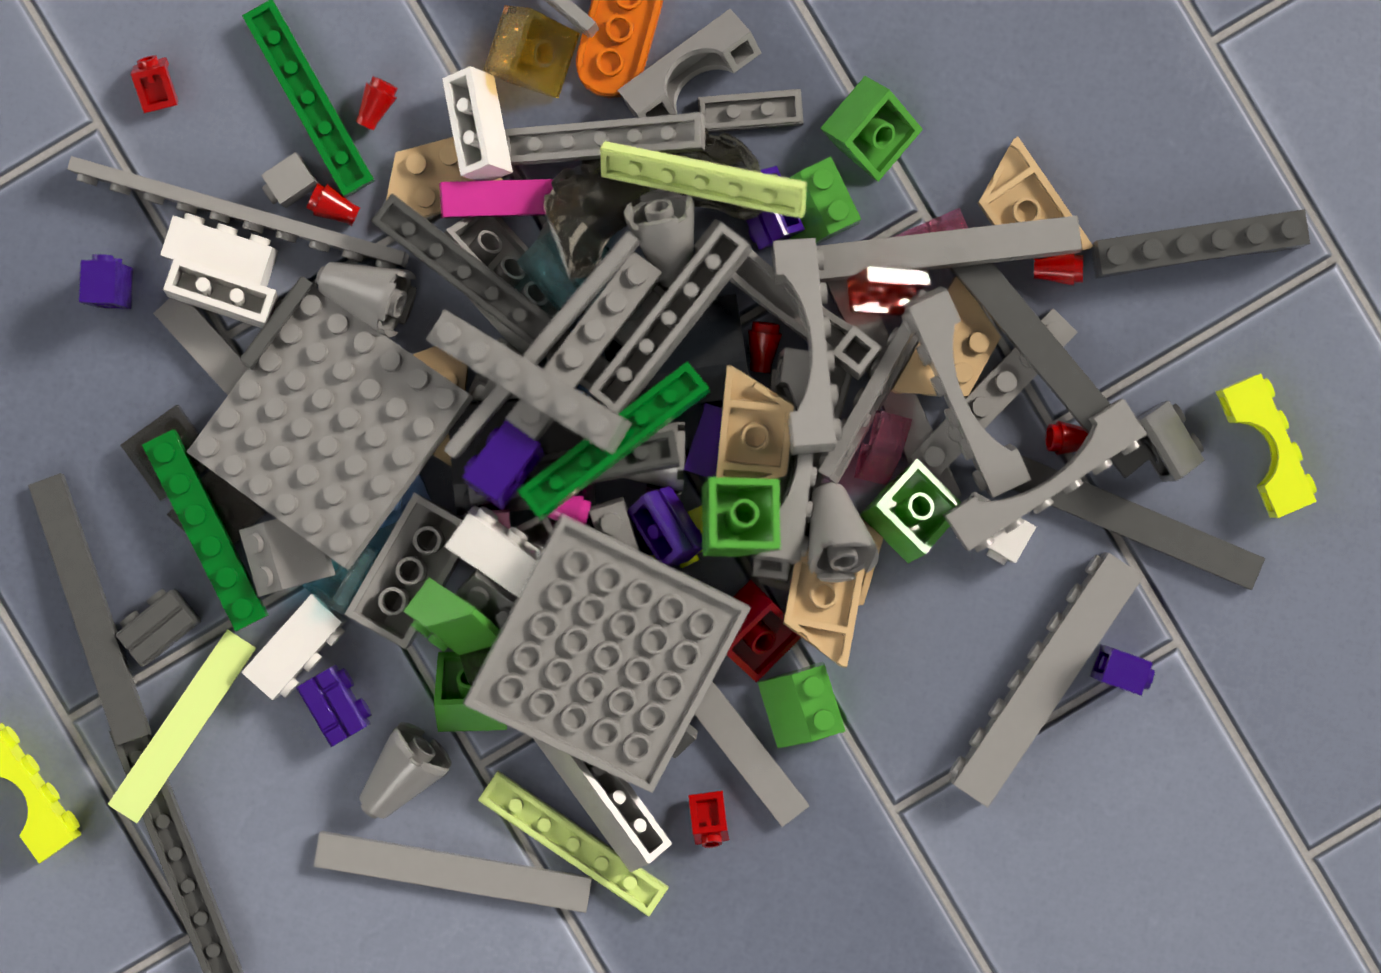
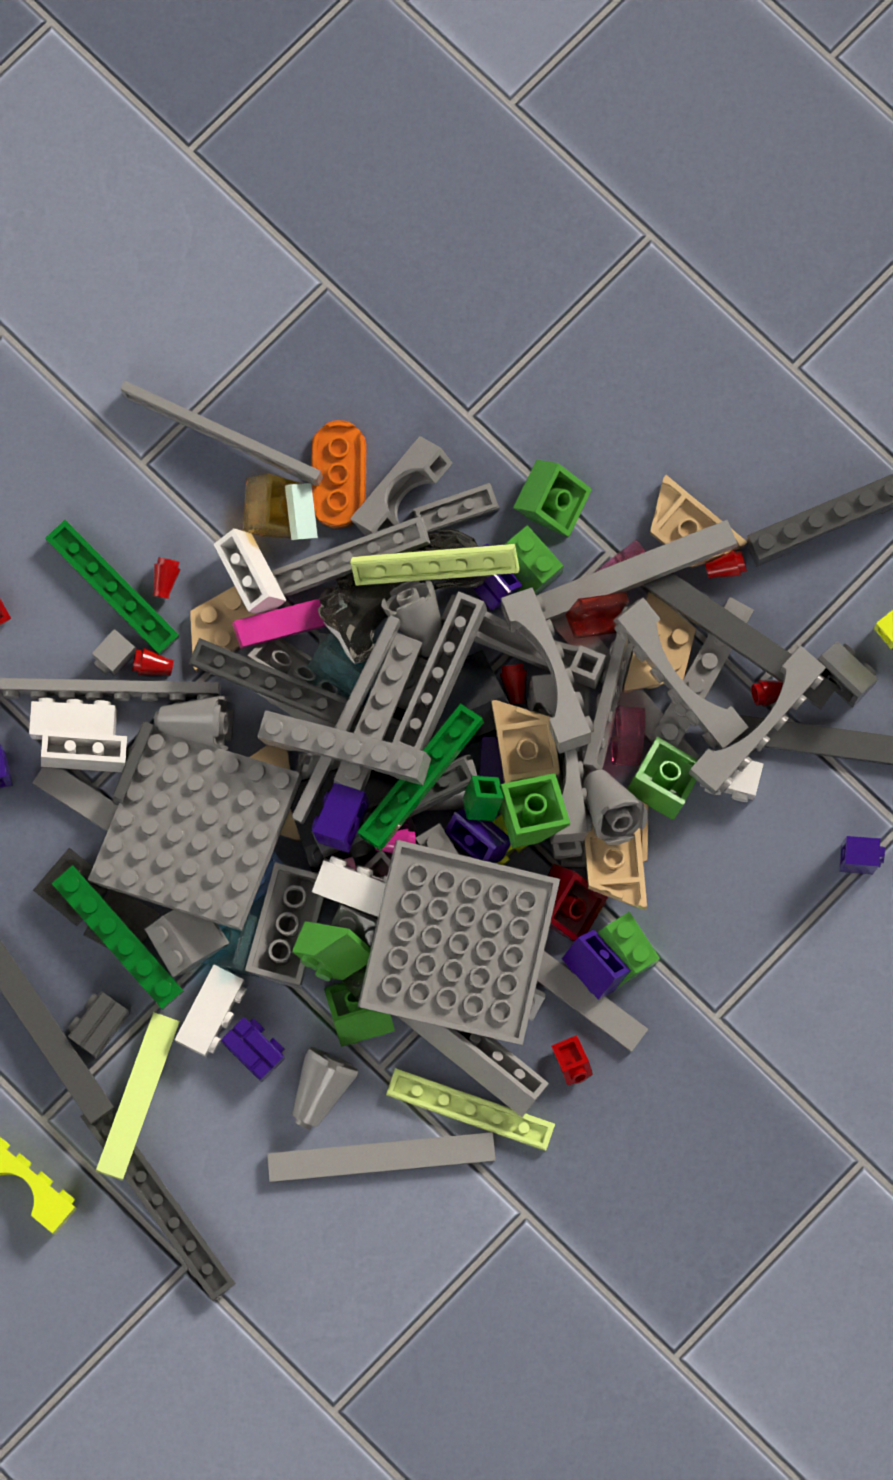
camera: 10 degrees left, 10 degrees down
(560, 65) = (301, 511): none -> light aqua tile
(683, 486) = (483, 798): none -> green brick
(767, 715) = (596, 964): none -> dark purple brick
(1045, 678) = (804, 880): light grey brick -> none

